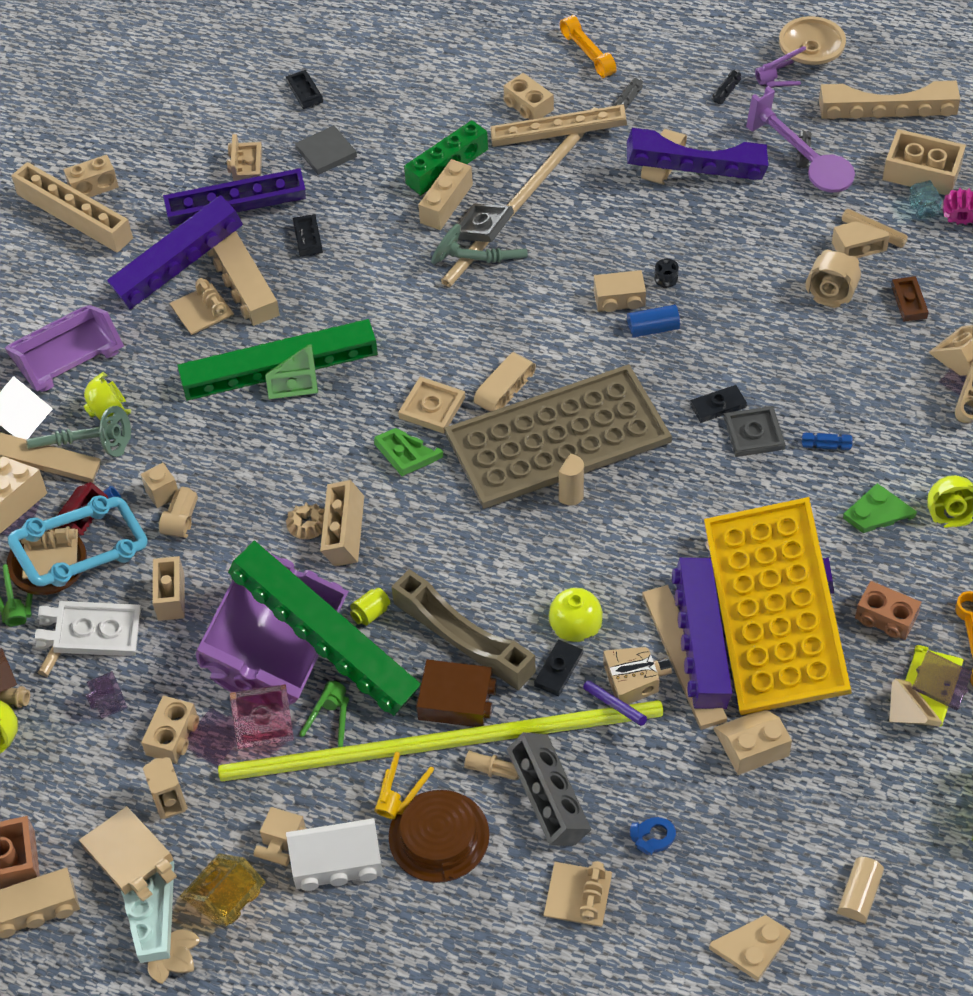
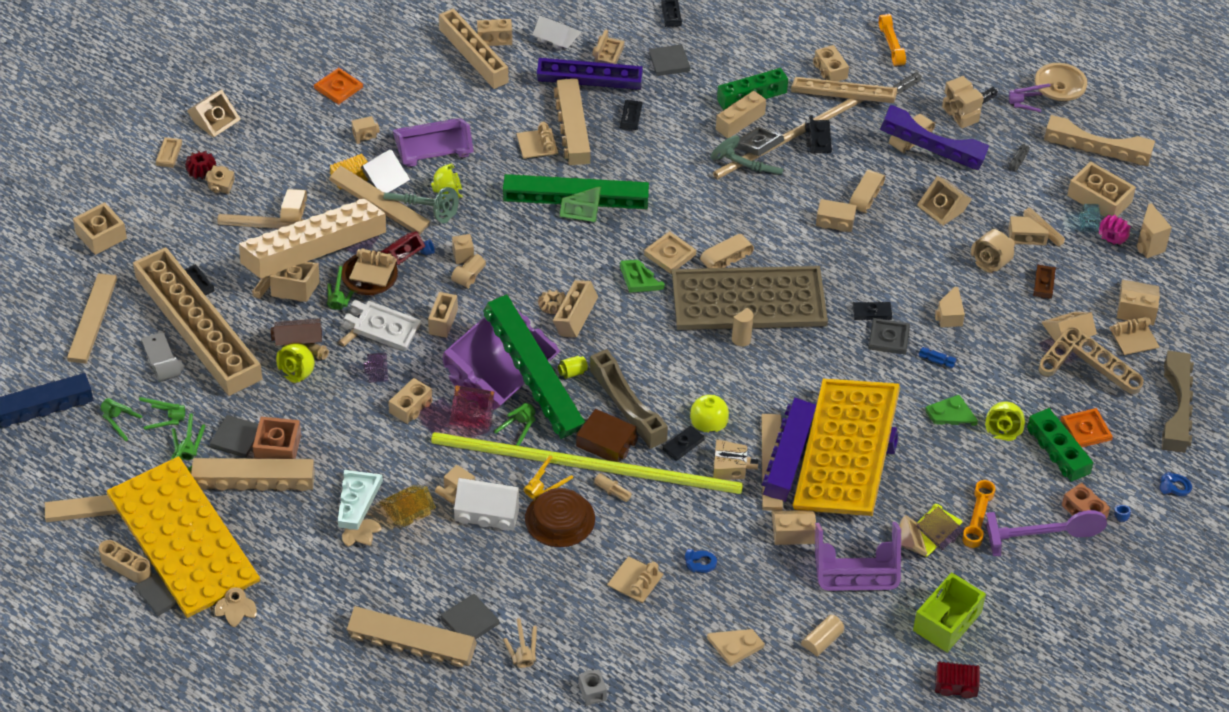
camera: 15 degrees right, 5 degrees down
(61, 572) = (374, 281): medium azure bar -> none
(128, 853) = (355, 464): tan tile -> none
(165, 787) = (393, 432): tan brick -> none
(168, 156) = (555, 32): none -> white slope
(175, 252) = (532, 99): dark purple brick -> none
(548, 789) = (642, 511): dark grey brick -> none
(553, 193) = (819, 135): none -> black bracket
(615, 703) = (710, 474): dark purple bar -> none
(643, 246) = (867, 190): none -> tan beam
(653, 320) = (851, 243): blue brick -> none
(662, 269) = (875, 213): black wheel -> none
(709, 99) = (962, 102): none -> tan brick
(741, 232) = (943, 201): none -> tan slope
(816, 372) = (950, 310): none -> tan slope
(826, 172) = (1025, 178): medium lavender piece -> none
(869, 778) = (859, 573): none -> medium lavender windscreen
(889, 606) = (925, 475): nougat brick -> none

